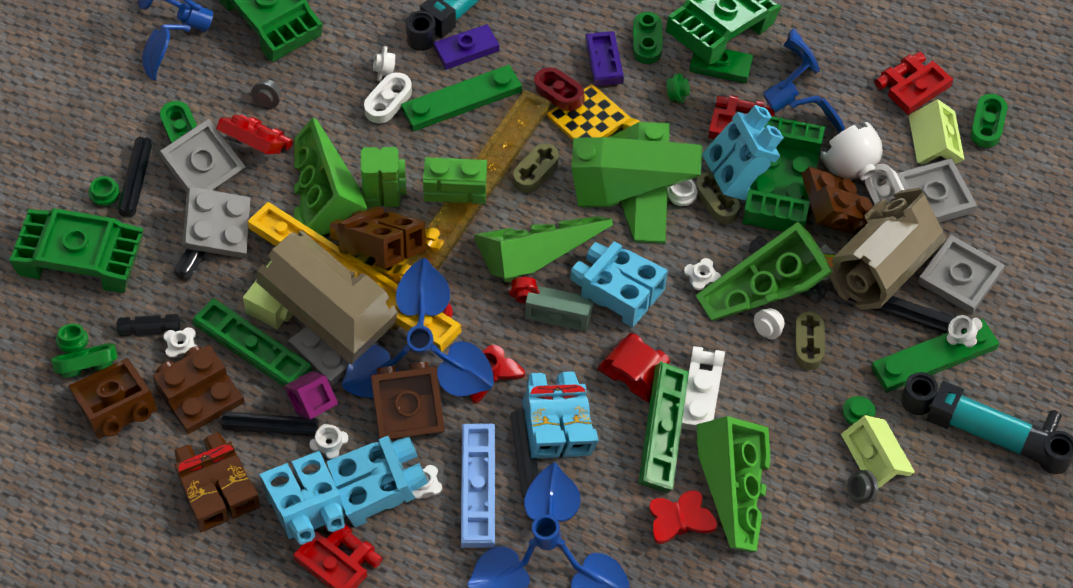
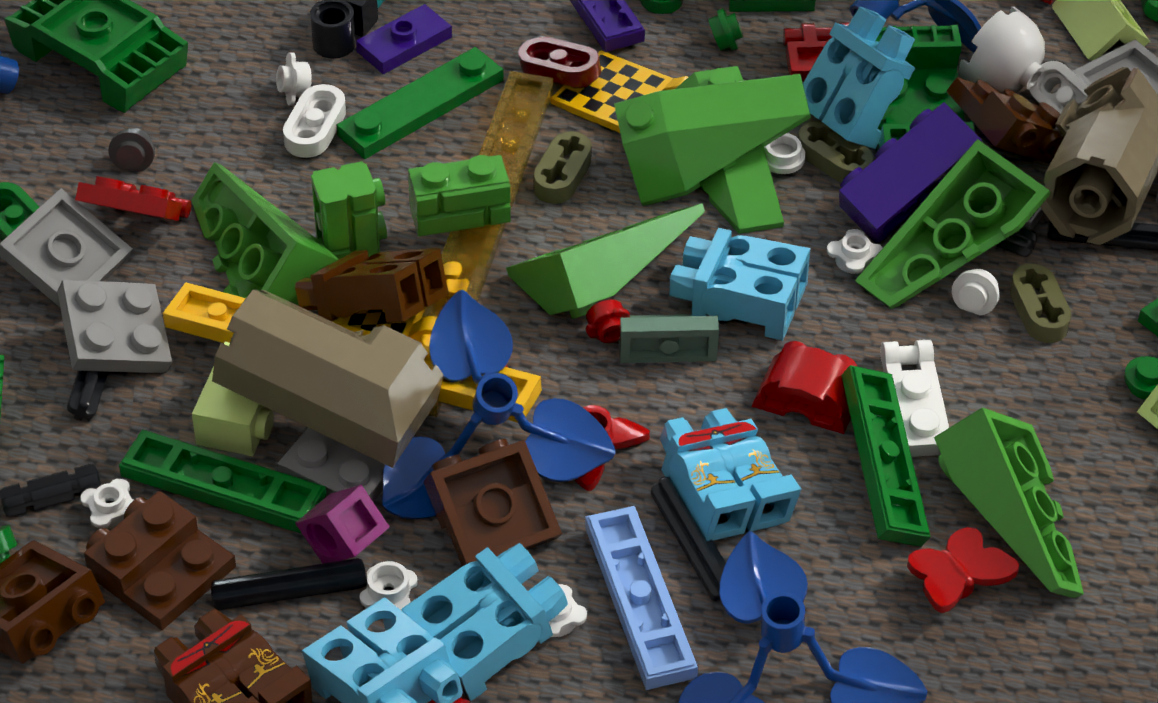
camera: 15 degrees left, 10 degrees down
(750, 228) = (905, 172): none -> dark purple brick

